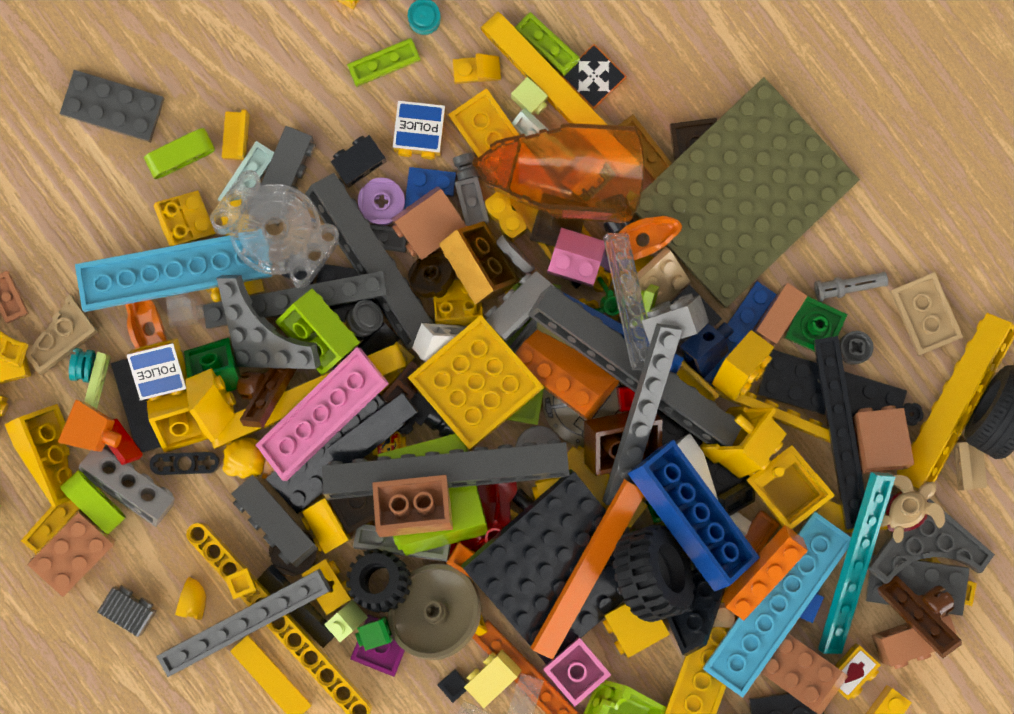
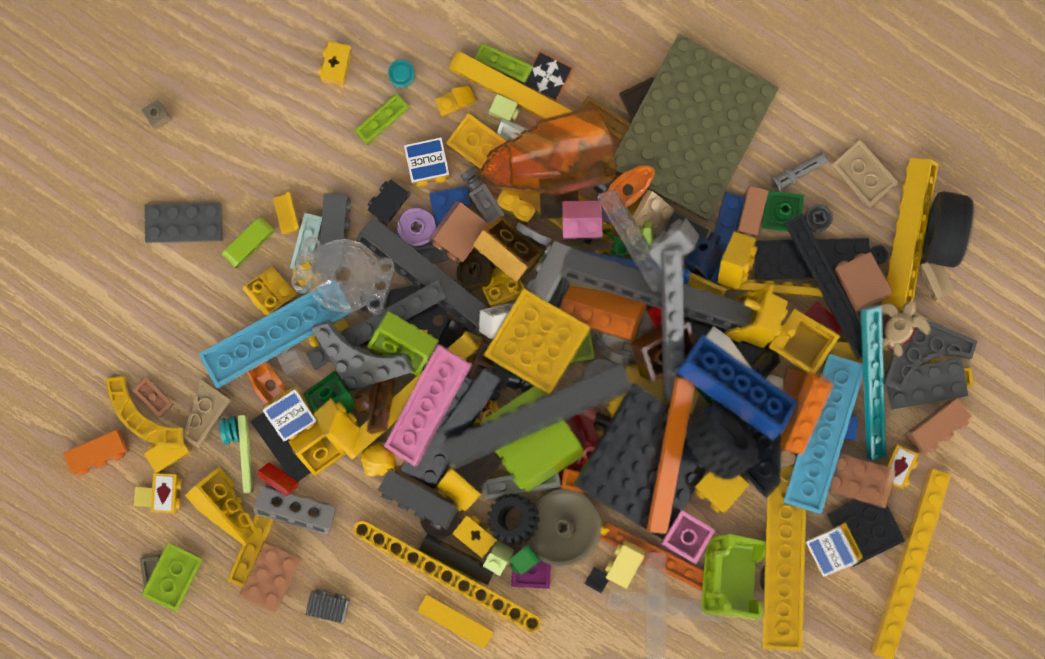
camera: 10 degrees left, 0 degrees up
(88, 428) = (252, 476): orange torso -> none
(92, 502) = (273, 532): lime beam -> none
(168, 469) = (317, 479): black beam -> none
(192, 600) = (374, 582): yellow brick -> none
(240, 583) = (408, 555): yellow plate -> none
(244, 622) = (421, 585): plate -> none
(364, 318) = (434, 321): dark grey wheel -> none
(412, 506) = (521, 451): nougat slope -> none
(822, 466) = (823, 317): none -> red plate
(923, 613) = (937, 403): reddish brown plate -> none

